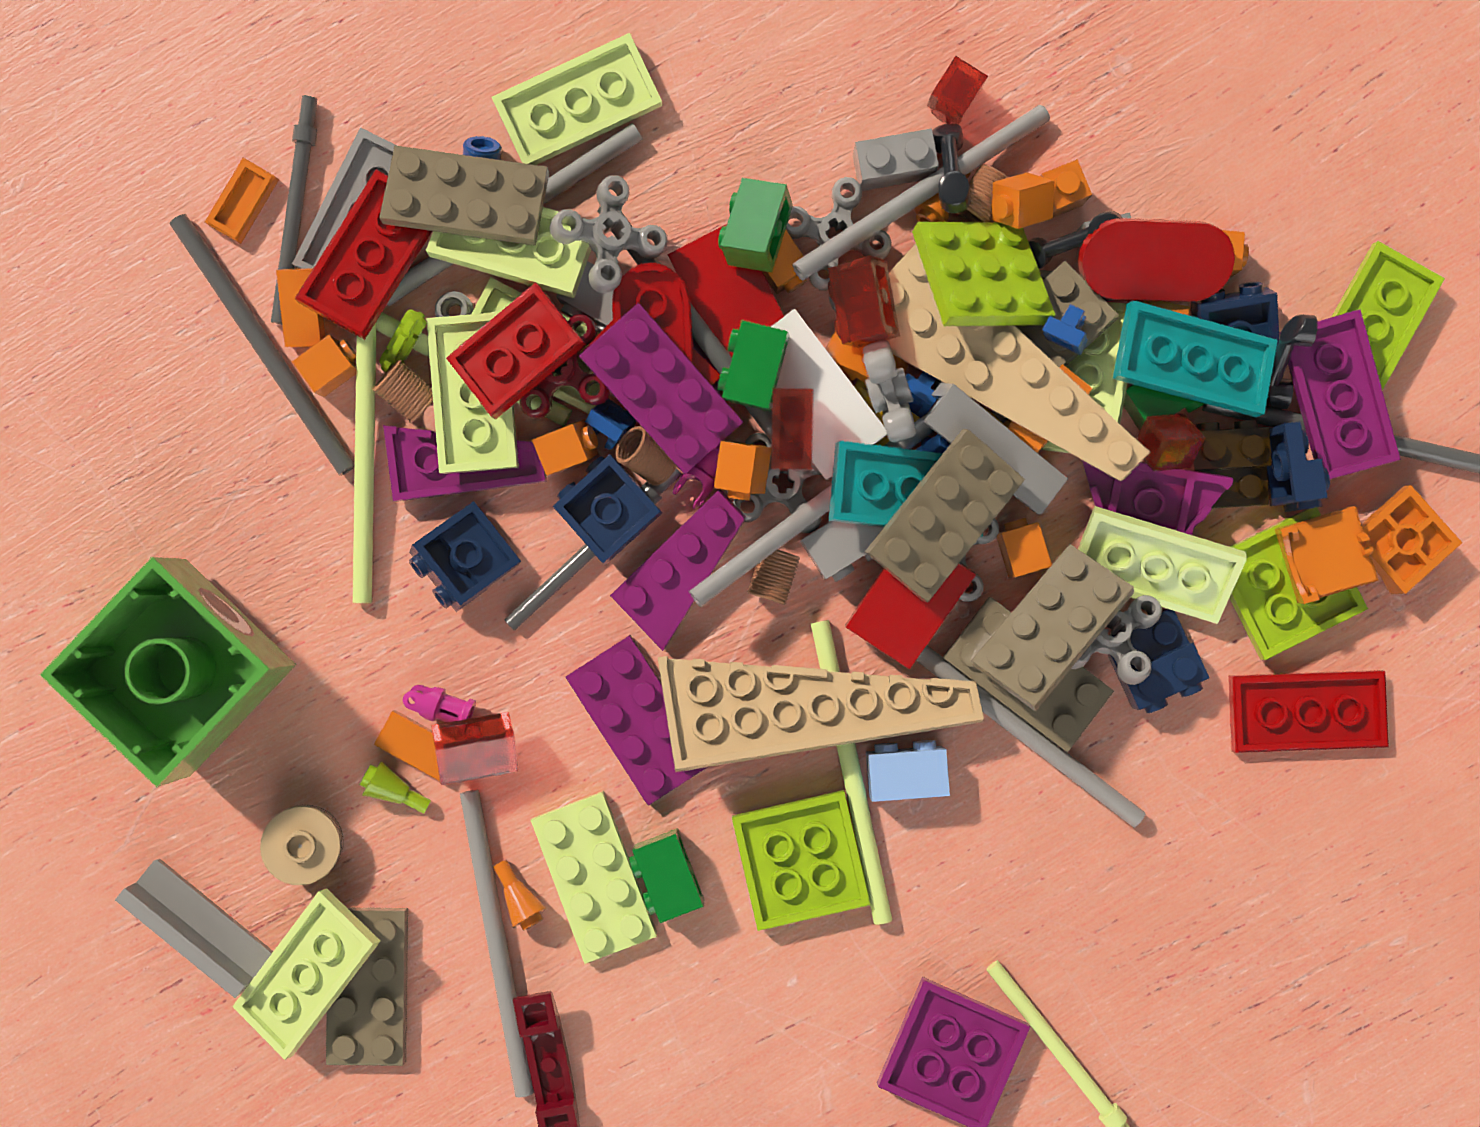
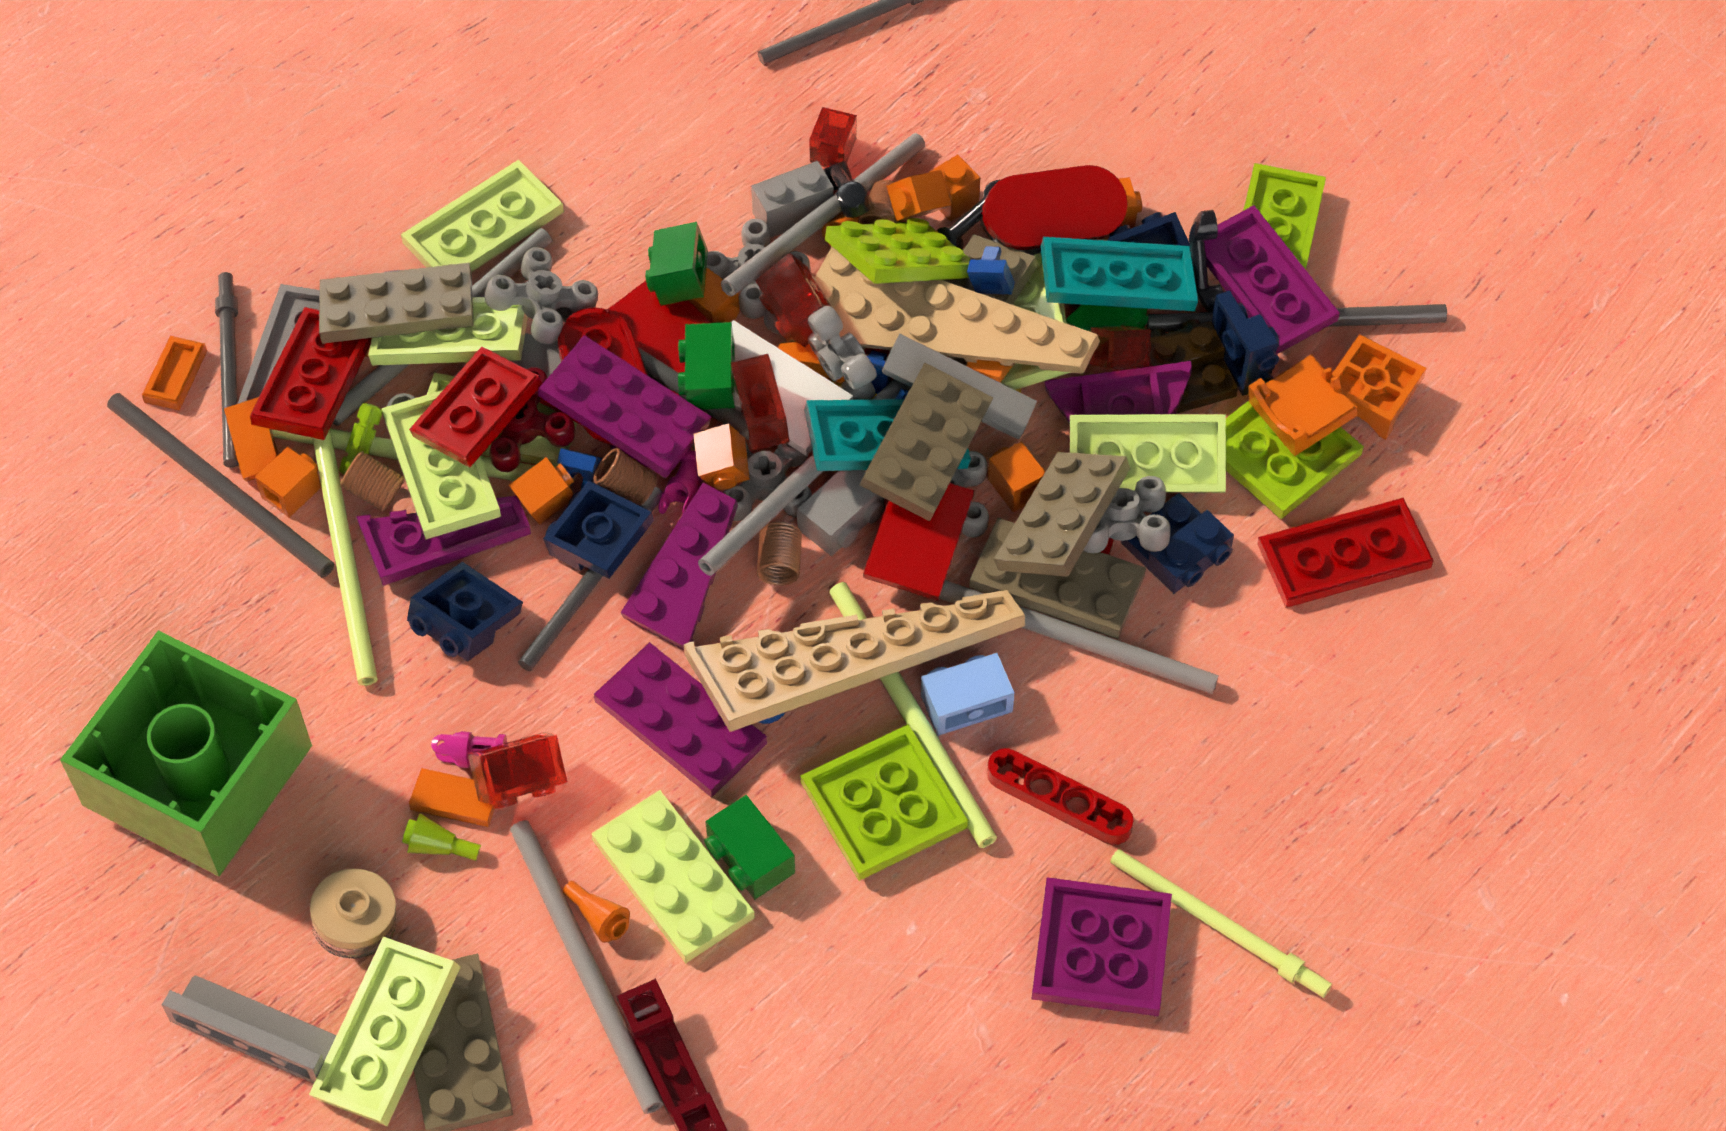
camera: 20 degrees left, 30 degrees down
(961, 894) = (1063, 790): none -> red beam

